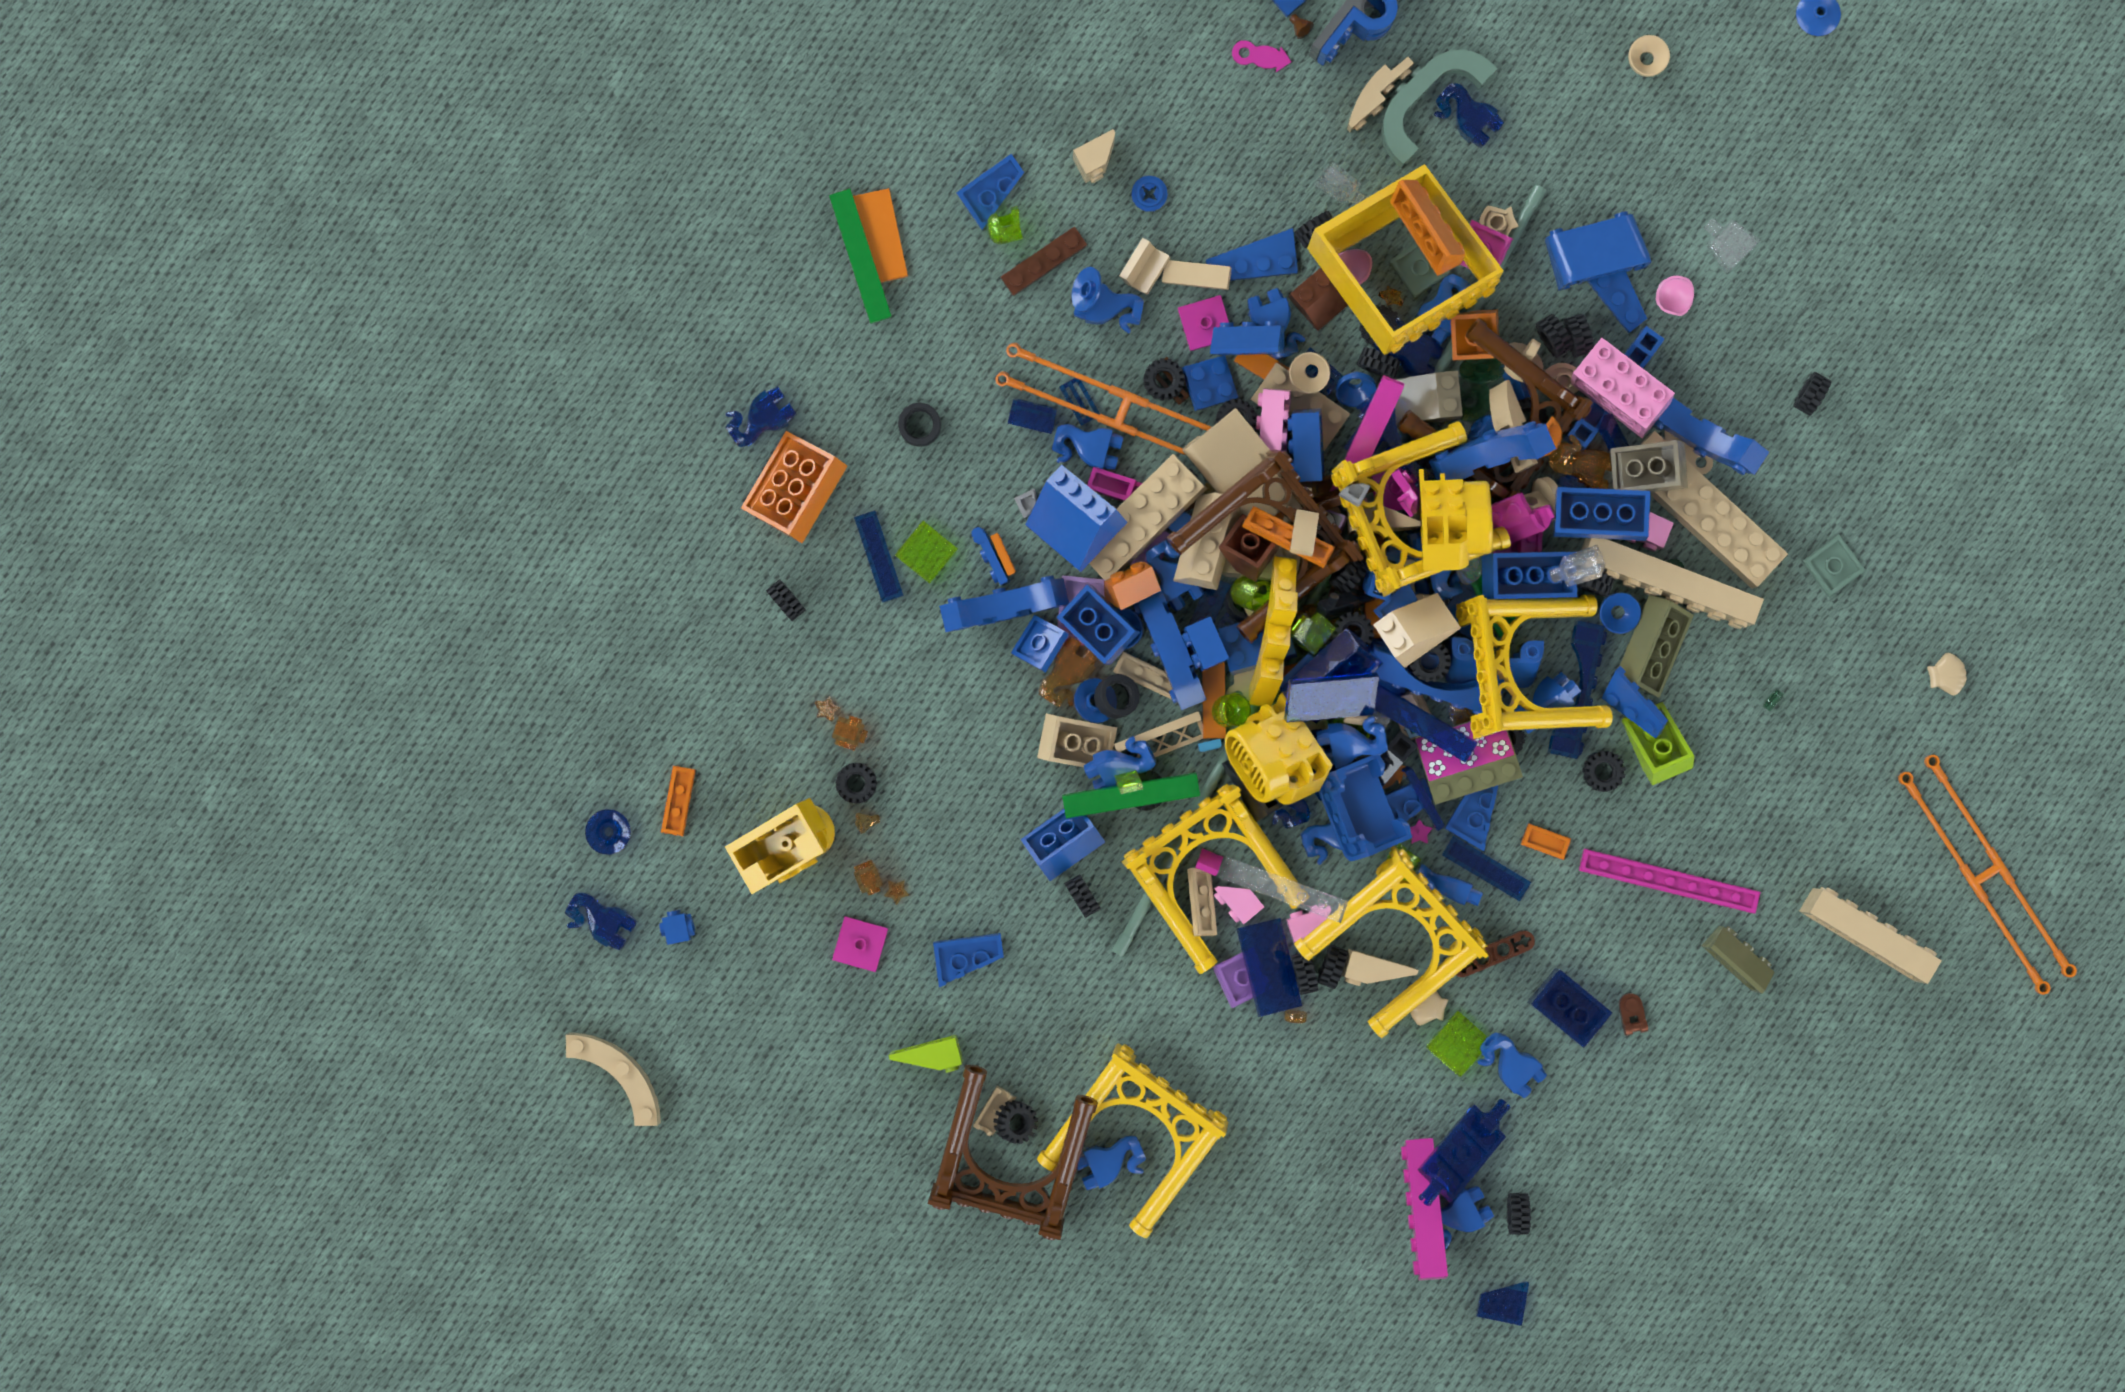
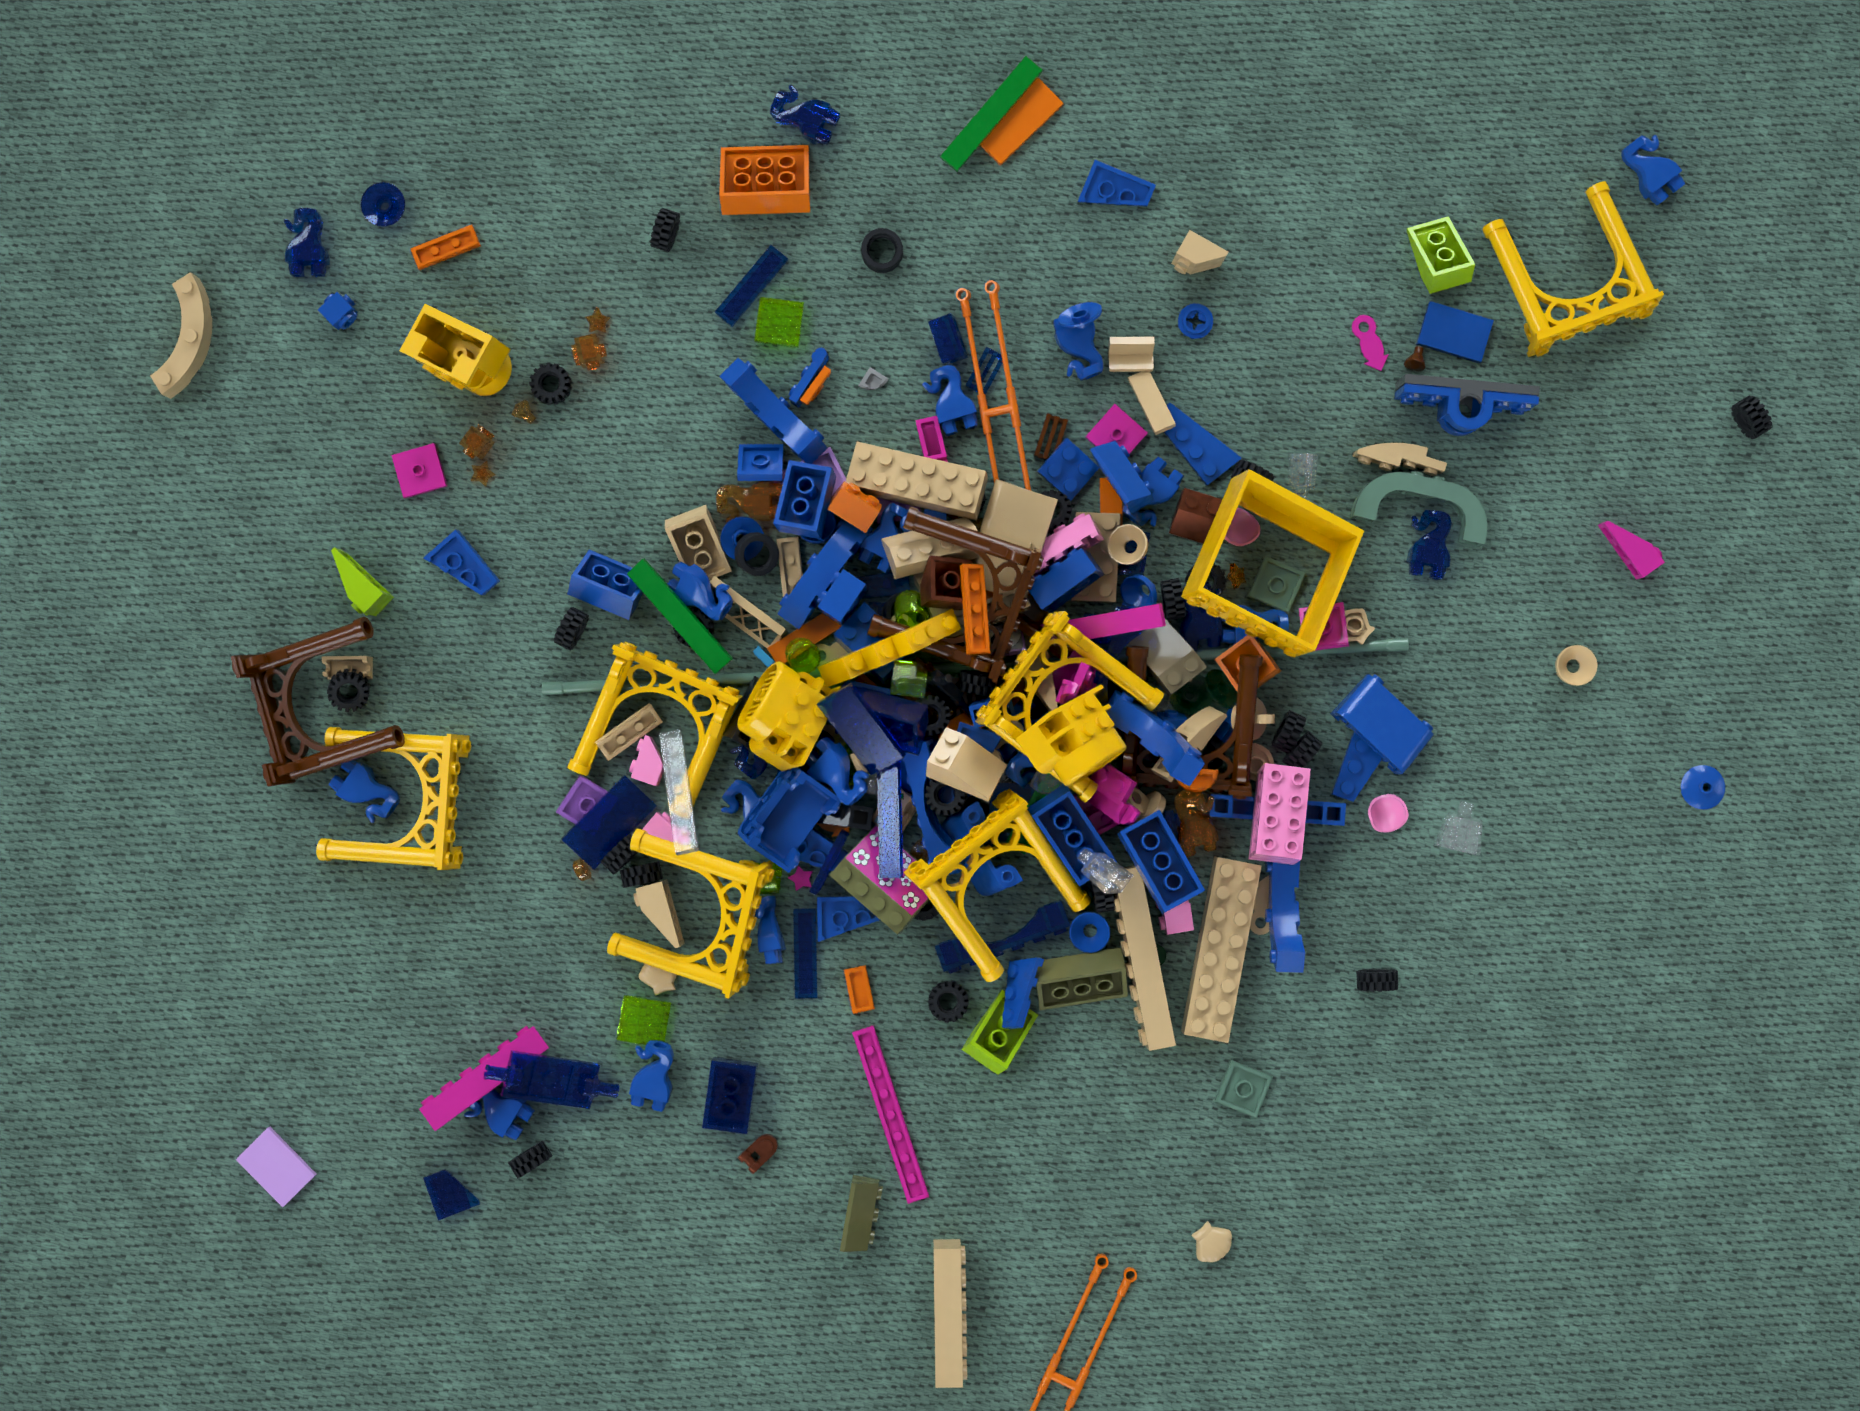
camera: 60 degrees right, 0 degrees up
(1004, 235) = (1089, 218): clear neon green helmet -> none
(1043, 261) = (1083, 269): copper plate -> none
(1073, 518) = (881, 424): blue slope -> none
(1128, 782) = (687, 606): clear neon green tile -> none
(1164, 393) = (1050, 415): black tyre -> none
(1209, 862) = (666, 717): dark pink tile -> none
(1304, 532) = (986, 619): tan tile -> none
(1355, 493) = (1045, 640): light grey tile -> none
(1427, 226) = (1311, 562): orange slope -> none
(1495, 958) = (735, 1005): copper beam -> none
(1554, 694) = (985, 918): blue hips -> none
(1612, 433) = (1234, 835): clear blue tile -> none
(1650, 467) = (1227, 880): dark tan slope -> none
(1772, 700) = (1097, 1107): clear green tile -> none

